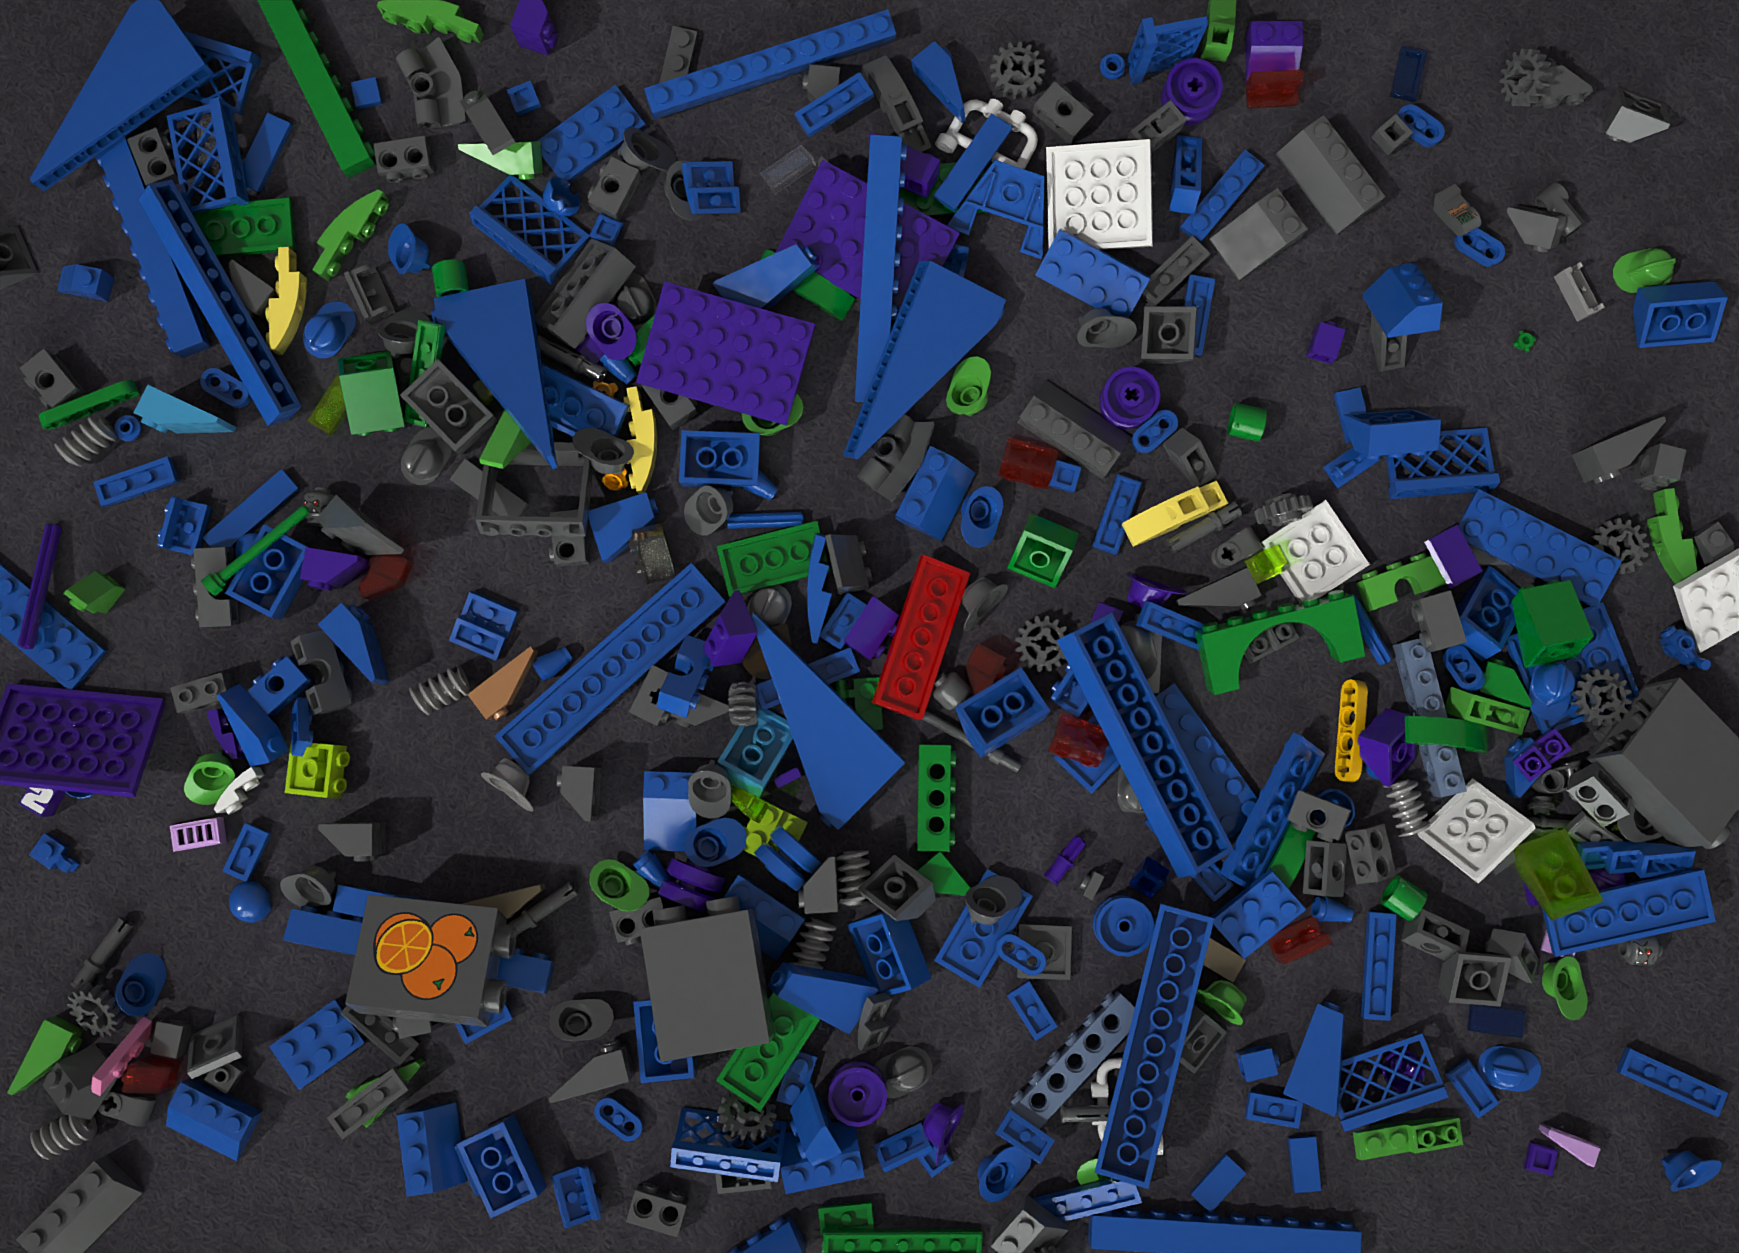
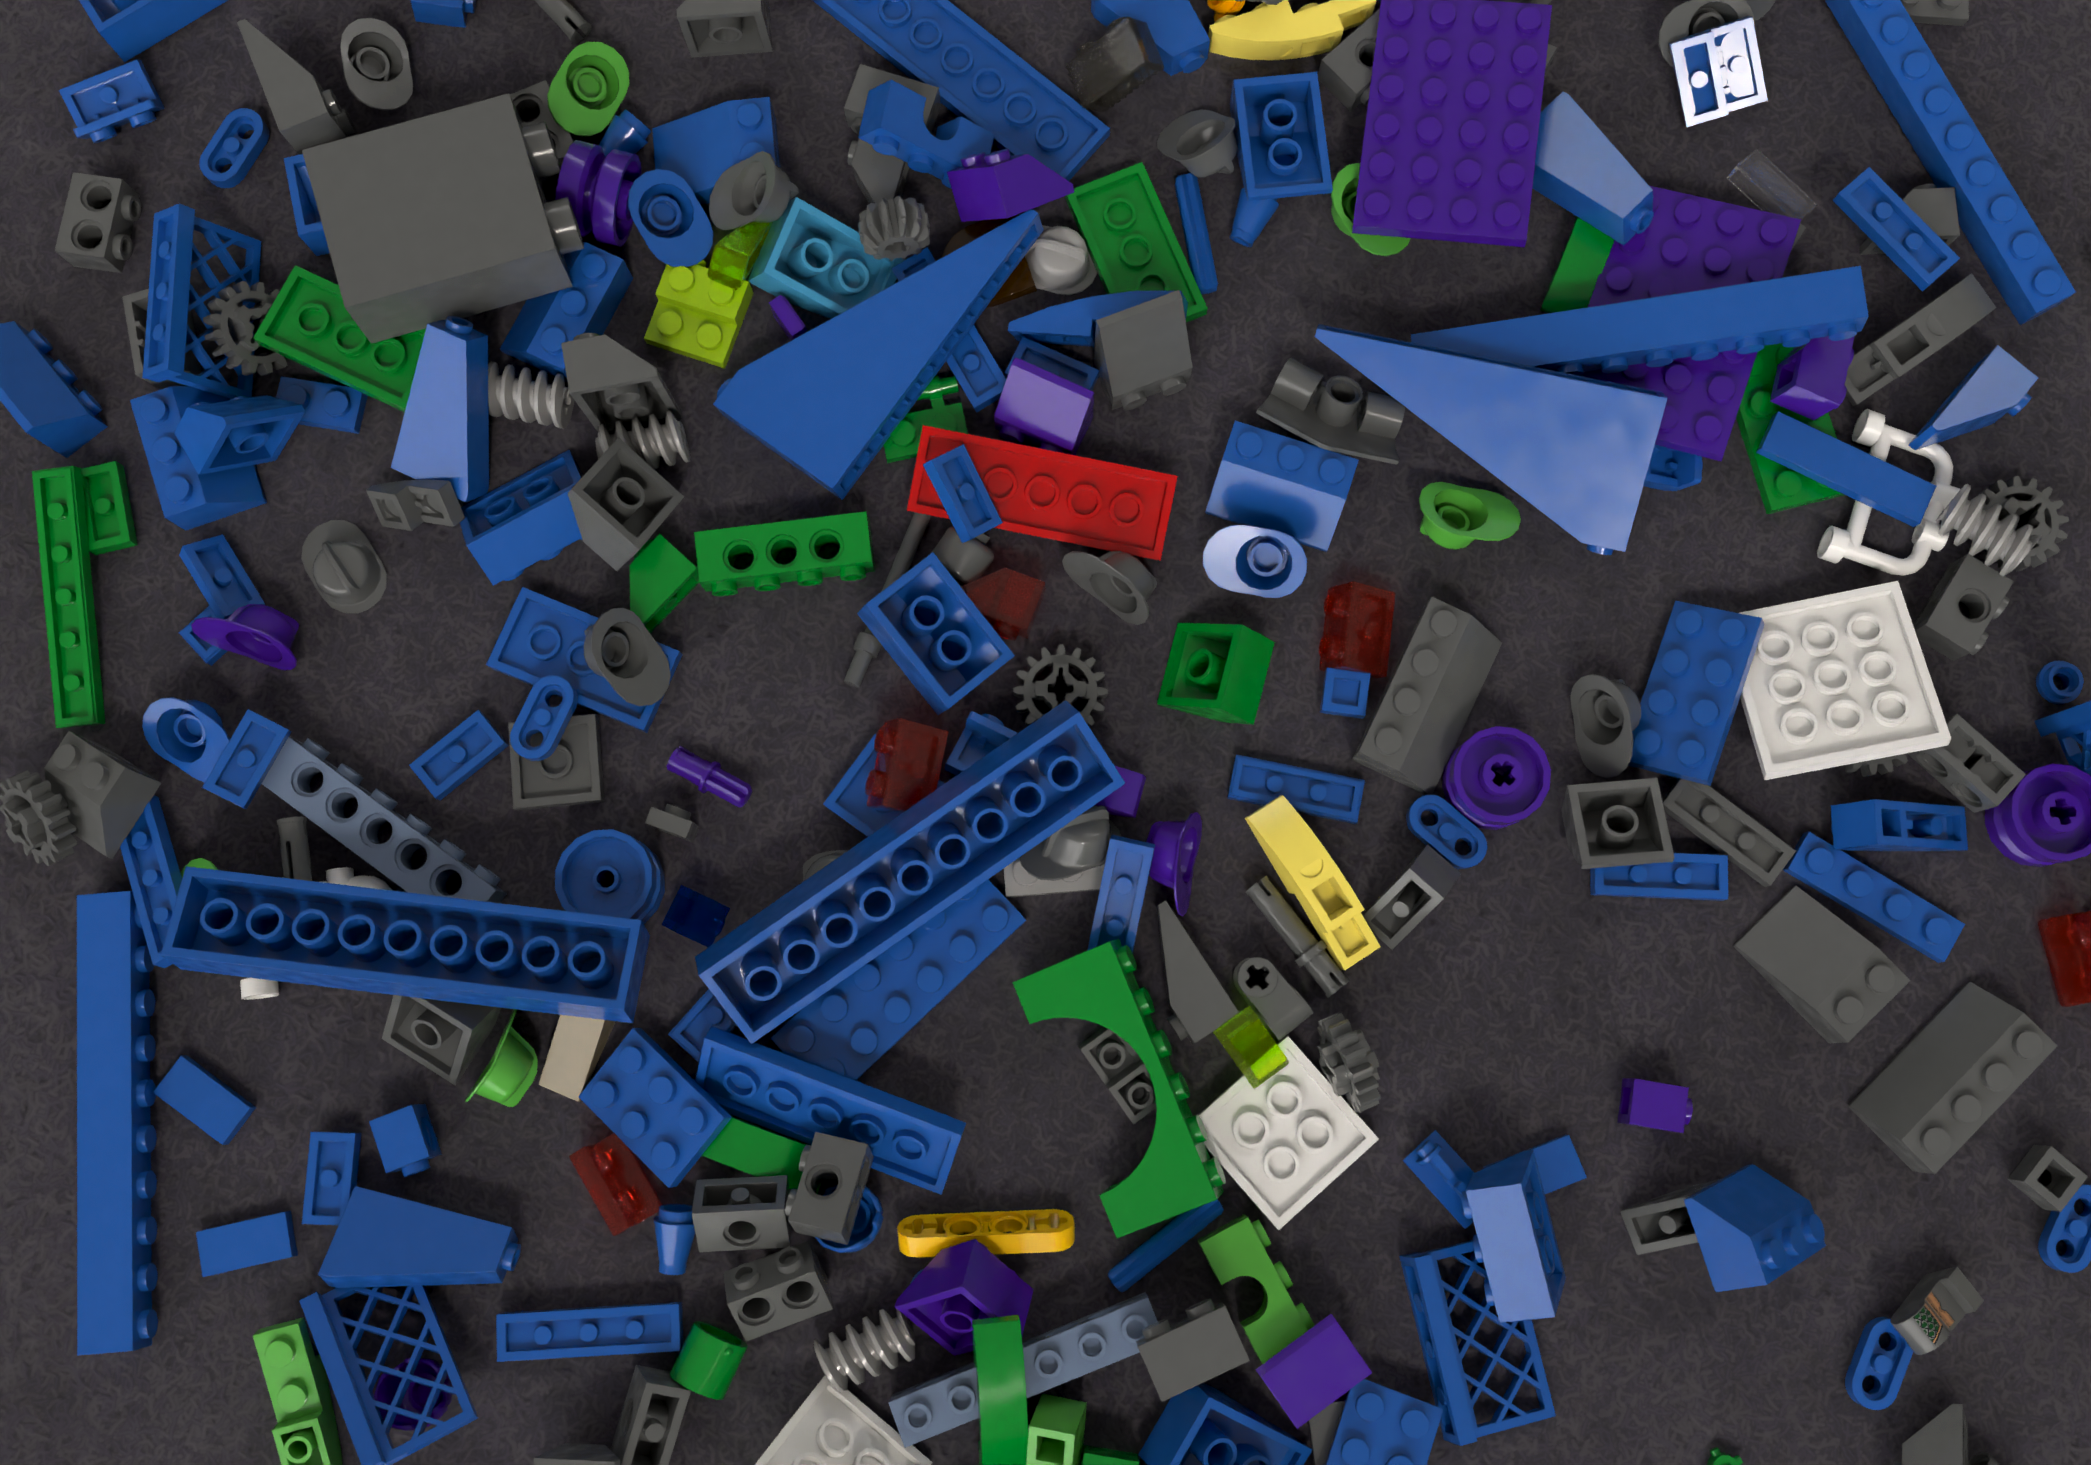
camera: 85 degrees right, 5 degrees down
(785, 861) = (657, 320): blue wheel -> none
(854, 1109) = (299, 493): dark purple wheel -> none
(921, 684) = (962, 493): none -> blue plate
(1009, 194) = (1804, 533): blue wing -> none
(1024, 91) = (1986, 530): none -> light grey piece
(1246, 422) = (1490, 983): green piece -> none
(1464, 670) = (1117, 1423): blue plate -> none

